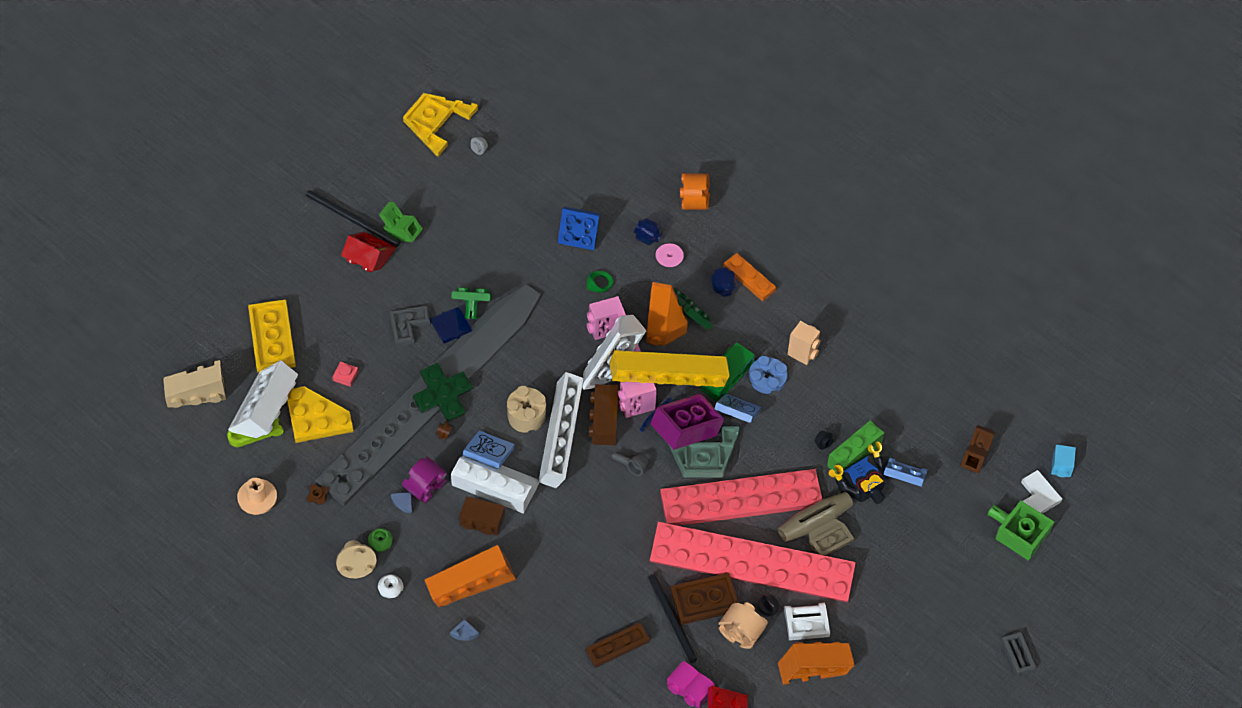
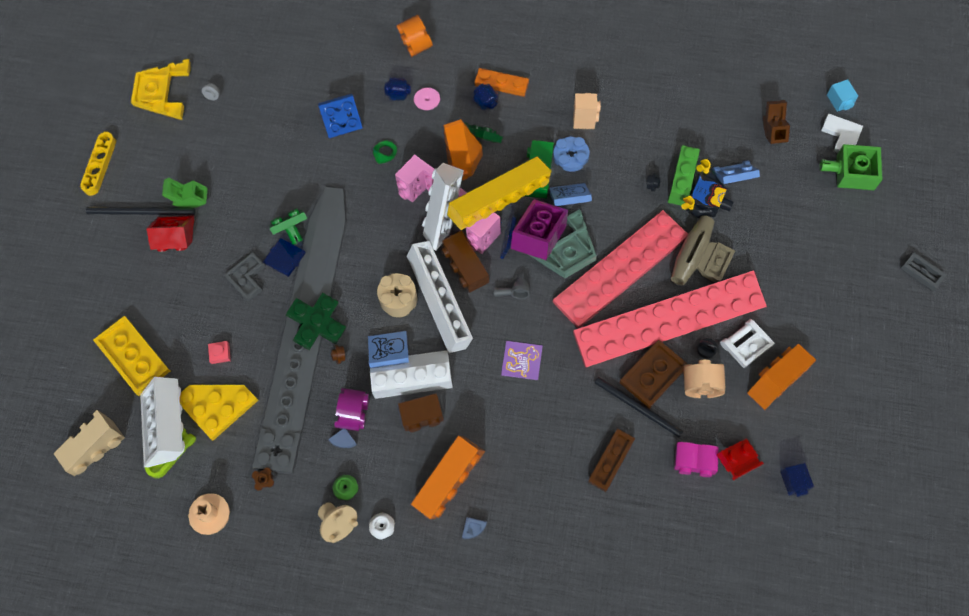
camera: 25 degrees left, 10 degrees up
(344, 158) = (93, 163): none -> yellow beam
(598, 525) = (522, 360): none -> medium lavender sticker

